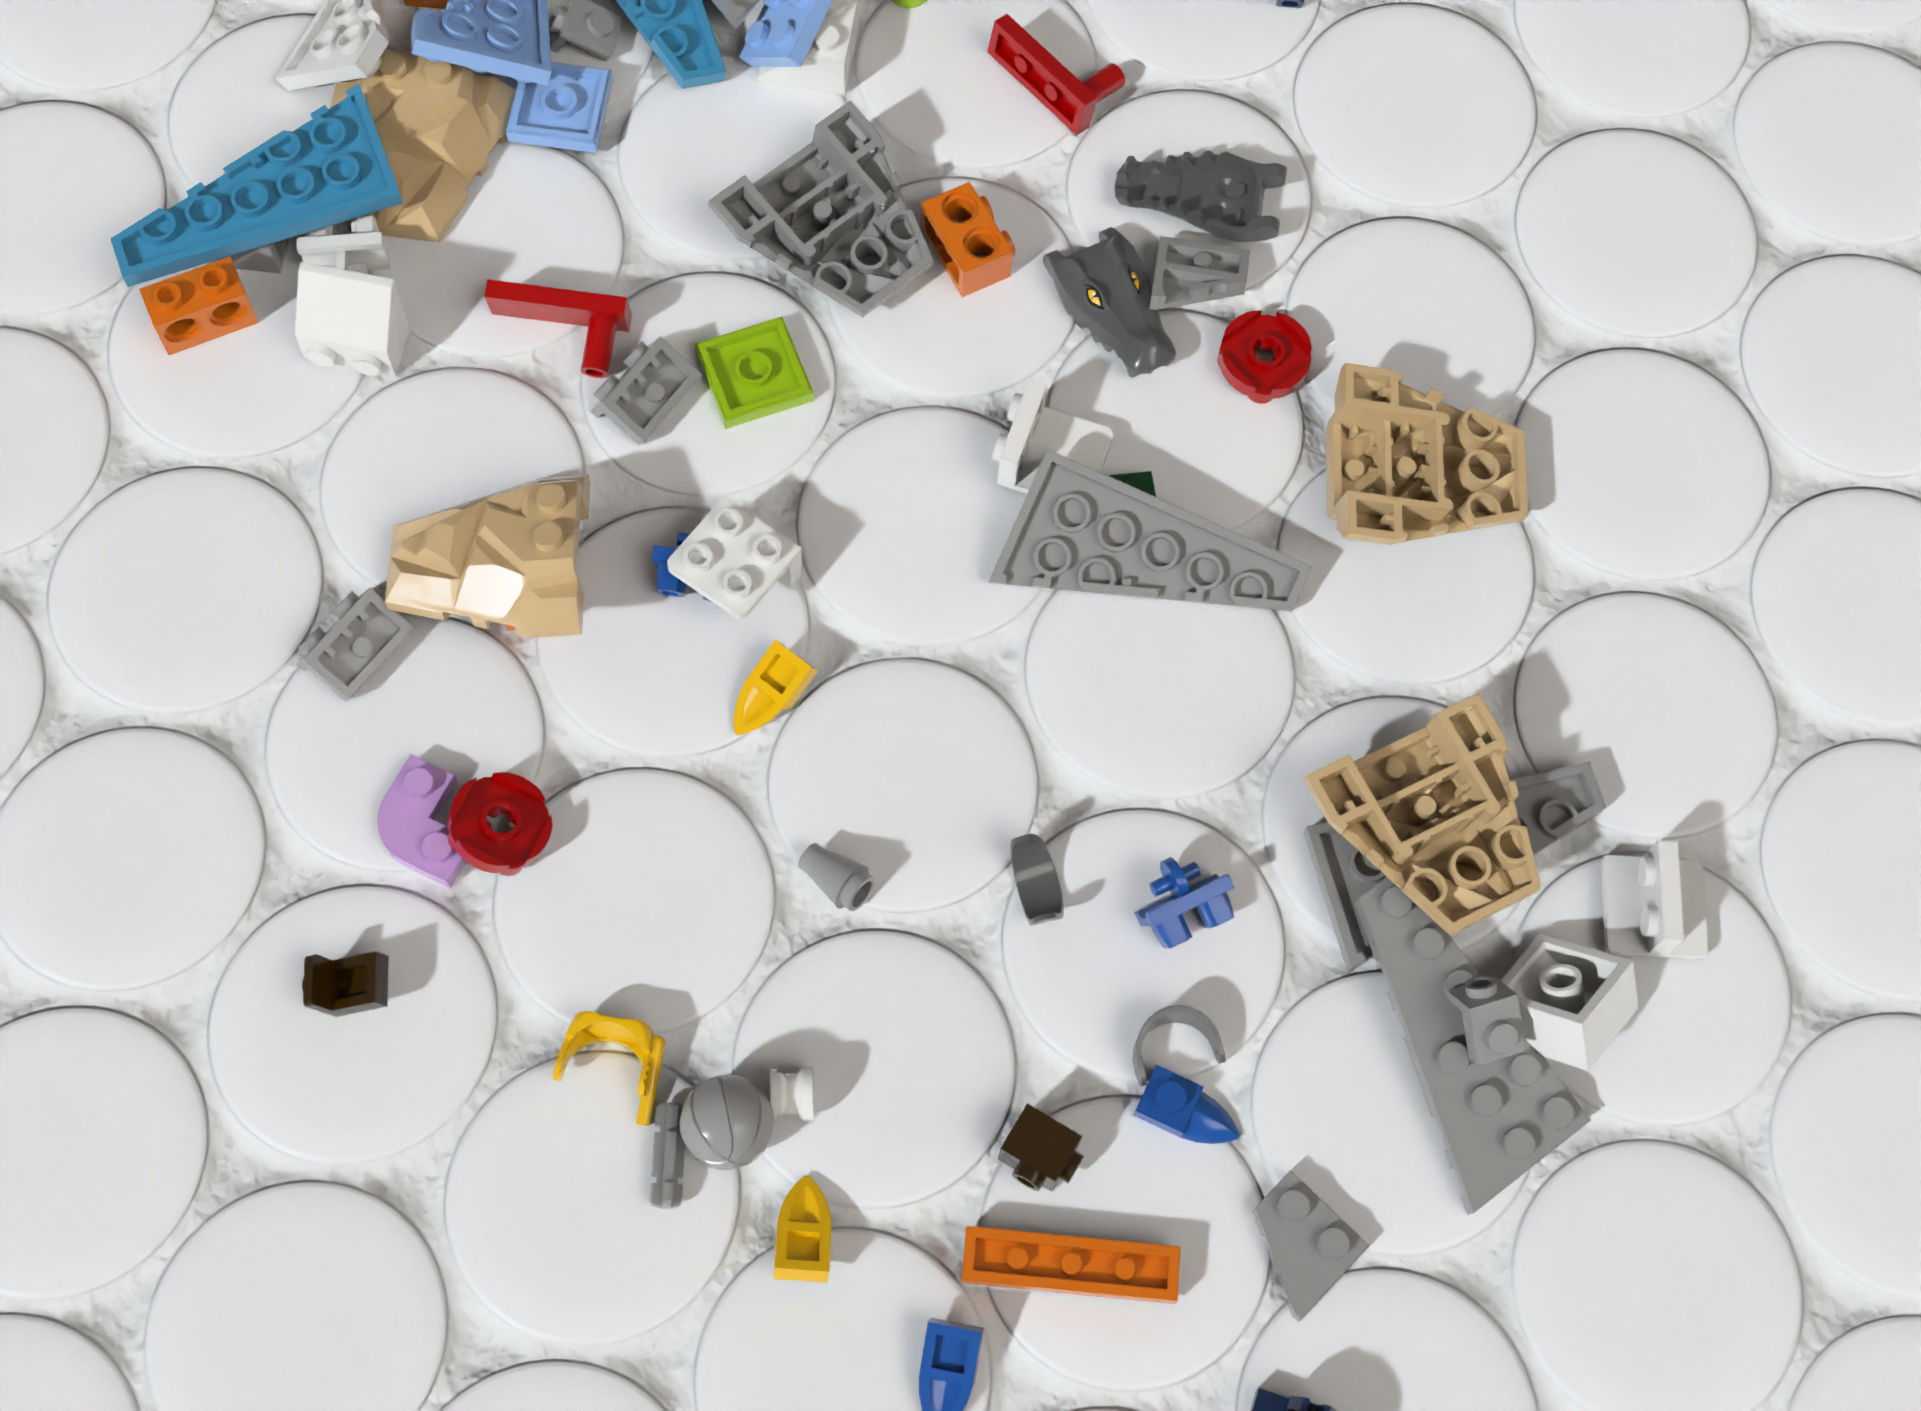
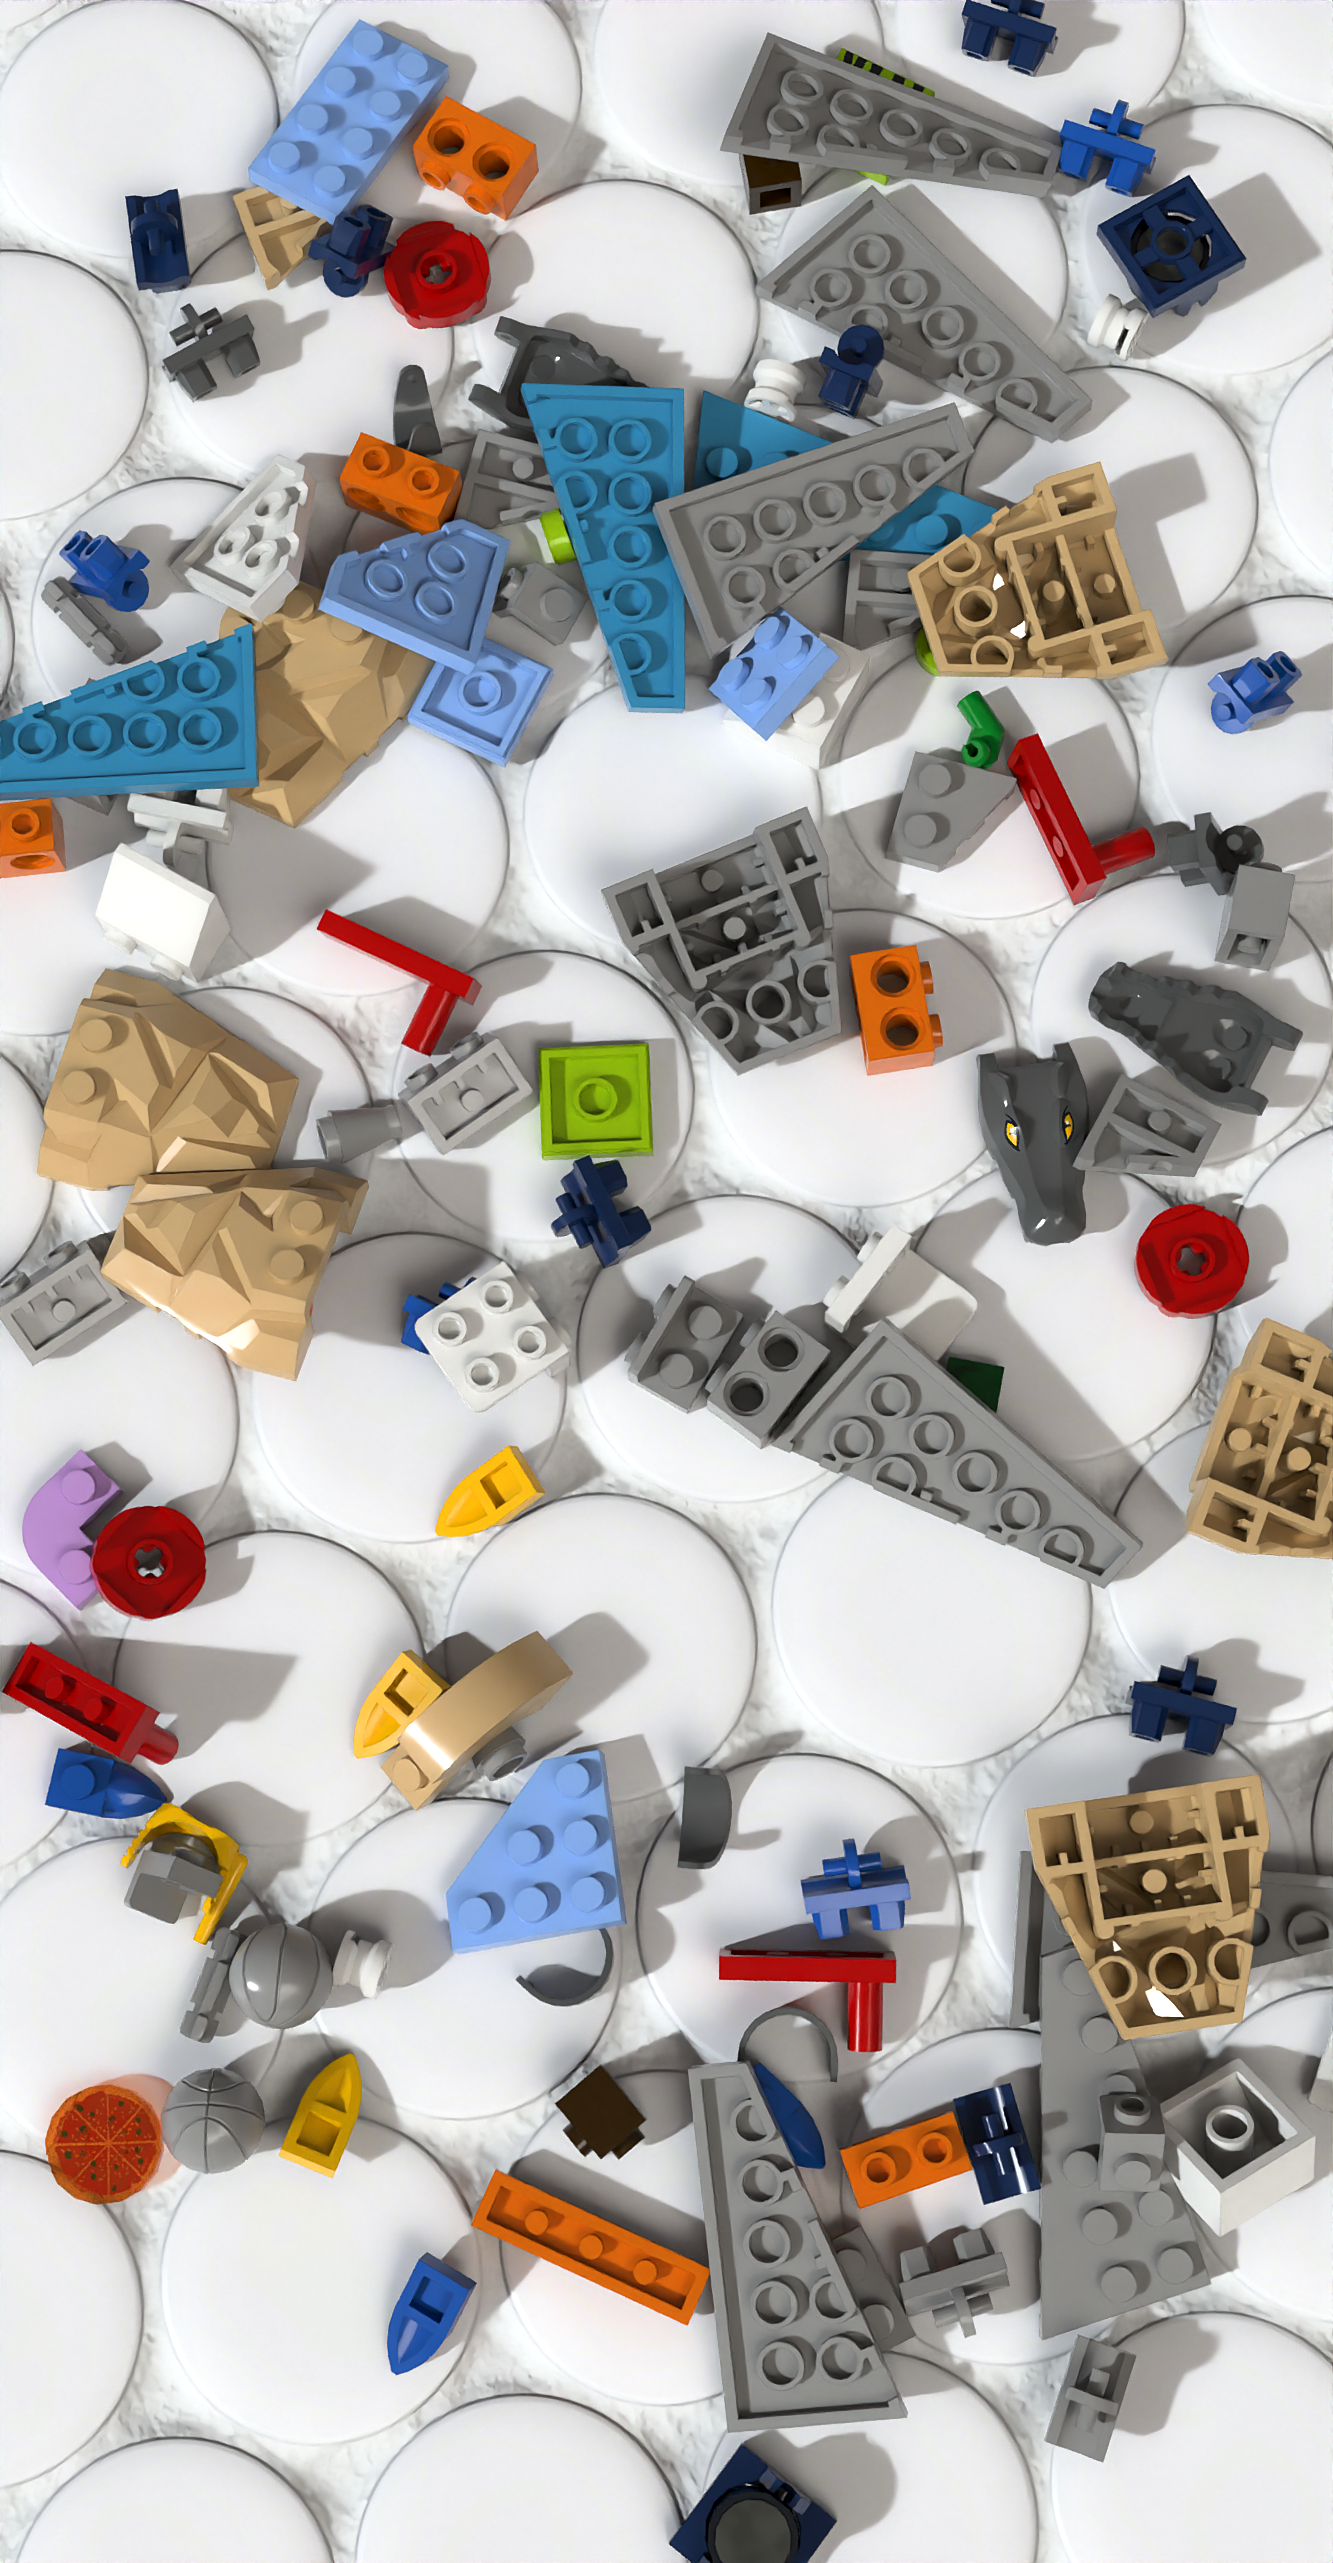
camera: 30 degrees right, 10 degrees up
(214, 132) = (84, 621): none -> light grey axle
(223, 85) = (107, 571): none -> blue hips
(386, 460) = (158, 1092): none -> tan wedge
(485, 953) = (89, 1707): none -> red piece
(513, 1025) = (101, 1787): none -> blue plate
(564, 445) = (356, 1131): none -> light grey cone
(599, 1075) = (165, 1880): none -> light grey bracket
(613, 1325) = (104, 2144): none -> clear orange tile
(706, 1265) = (212, 2120): none -> light grey piece
(750, 875) = (395, 1703): none -> yellow plate
(784, 450) = (591, 1214): none -> dark blue hips
(814, 858) = (472, 1714): none -> tan arch
(889, 529) = (682, 1344): none -> light grey bracket
(918, 963) = (544, 1864): none -> light blue plate
(951, 94) = (942, 809): none -> light grey wing
(964, 33) = (986, 732): none -> green arm
(973, 533) = (778, 1385): none -> light grey brick
(985, 1065) = (591, 1993): none -> dark grey helmet
(1166, 65) = (1209, 852): none -> dark grey hips
(1214, 962) = (861, 1969): none -> red piece
(1220, 95) = (1255, 916): none -> light grey brick
(1251, 1252) = (782, 2303): none -> light grey wing
(1306, 1100) = (905, 2159): none -> orange brick
(1377, 1062) = (996, 2143): none -> dark blue hips
(1388, 673) = (1153, 1704): none -> dark blue hips
(1388, 1195) = (929, 2289): none -> light grey hips
(1533, 1243) = (1090, 2398): none -> light grey hips

